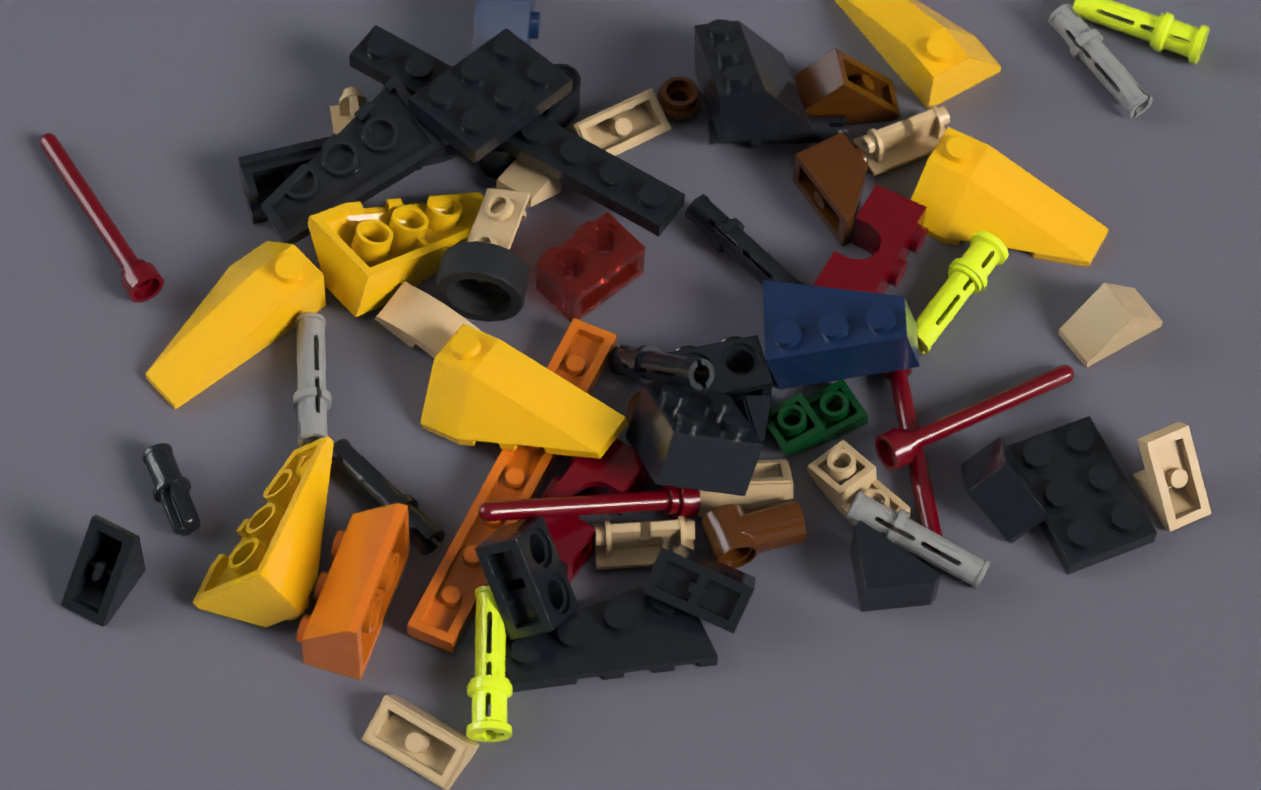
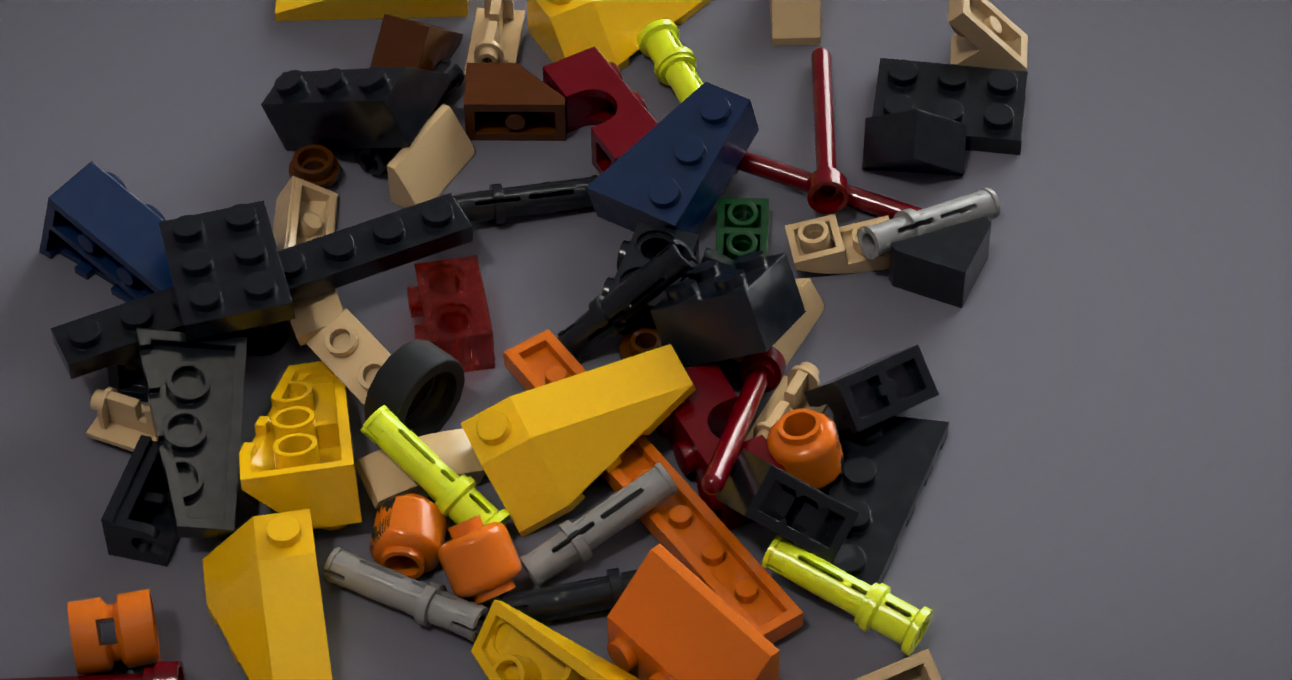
camera: 55 degrees left, 10 degrees down
(157, 223) = (134, 628): none -> orange wheel
(359, 407) = (479, 560): none -> orange head
(362, 353) = (408, 535): none -> orange head
(415, 361) = (452, 493): none -> neon yellow pin
(427, 462) = (598, 525): none -> light grey pin
(604, 566) = (807, 446): none -> orange head
(739, 167) = (430, 161): none -> tan slope
(741, 534) = (834, 336): reddish brown piece -> none

